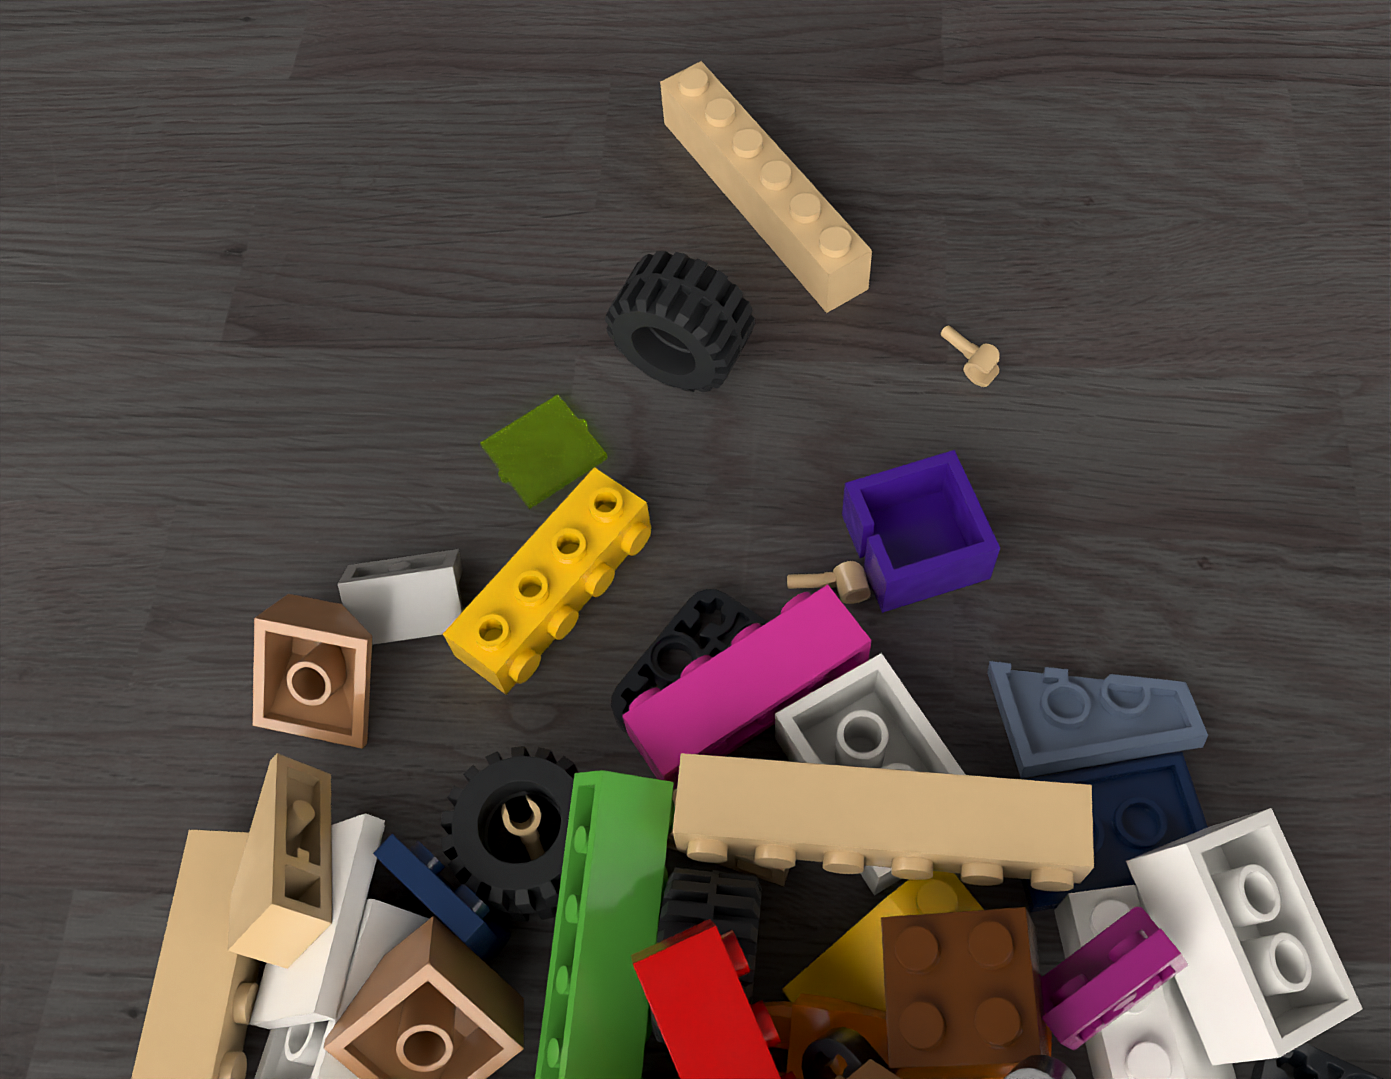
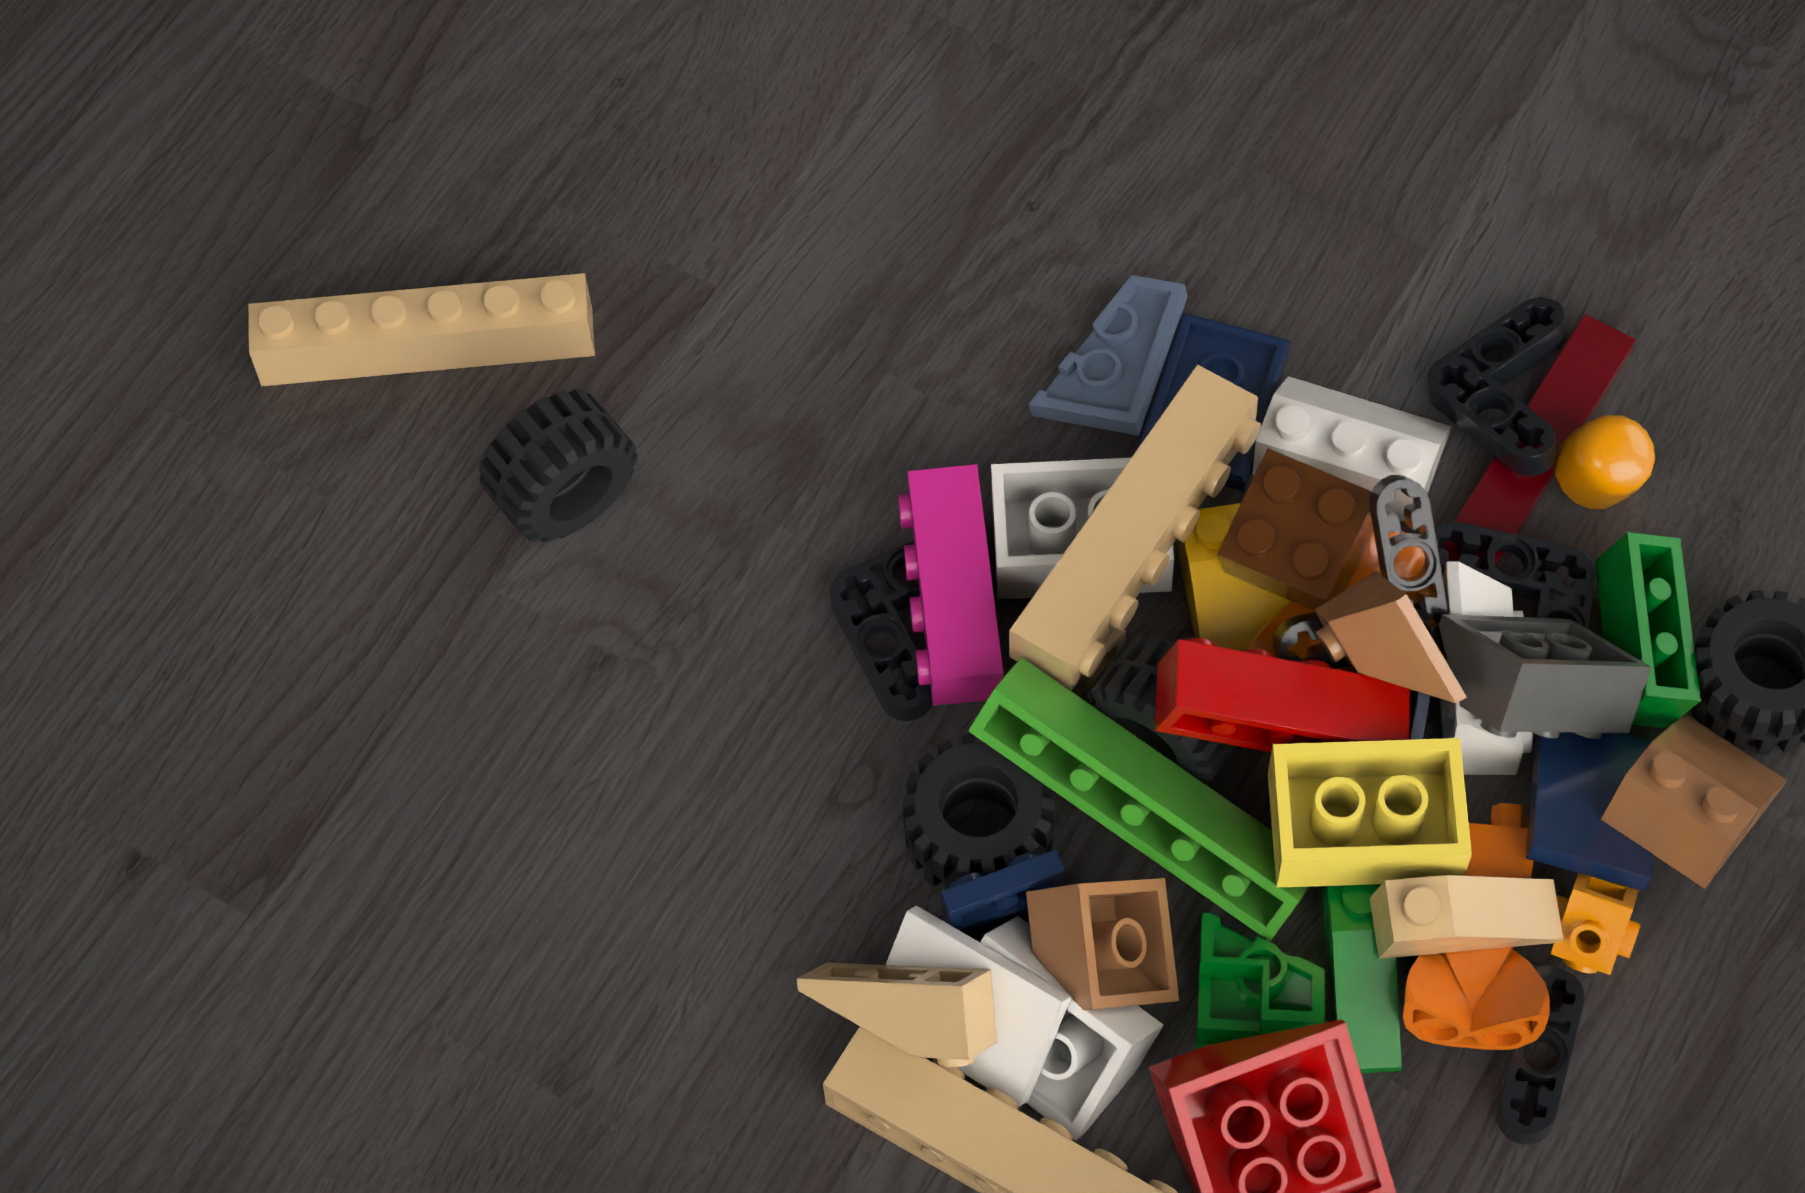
camera: 65 degrees left, 0 degrees up
(312, 671) = (717, 935): medium nougat slope -> none
(404, 595) = (678, 838): light grey panel -> none
(527, 830) = (973, 812): tan hand -> none
(543, 451) = (590, 662): clear neon green piece -> none
(550, 581) = (745, 704): yellow brick -> none
(847, 577) = (889, 470): tan hand -> none
(919, 530) = (886, 388): dark purple piece -> none
(982, 361) = (738, 254): tan hand -> none
(1108, 977) = (1333, 428): magenta bracket -> none
(1251, 936) = (1347, 346): white brick -> none

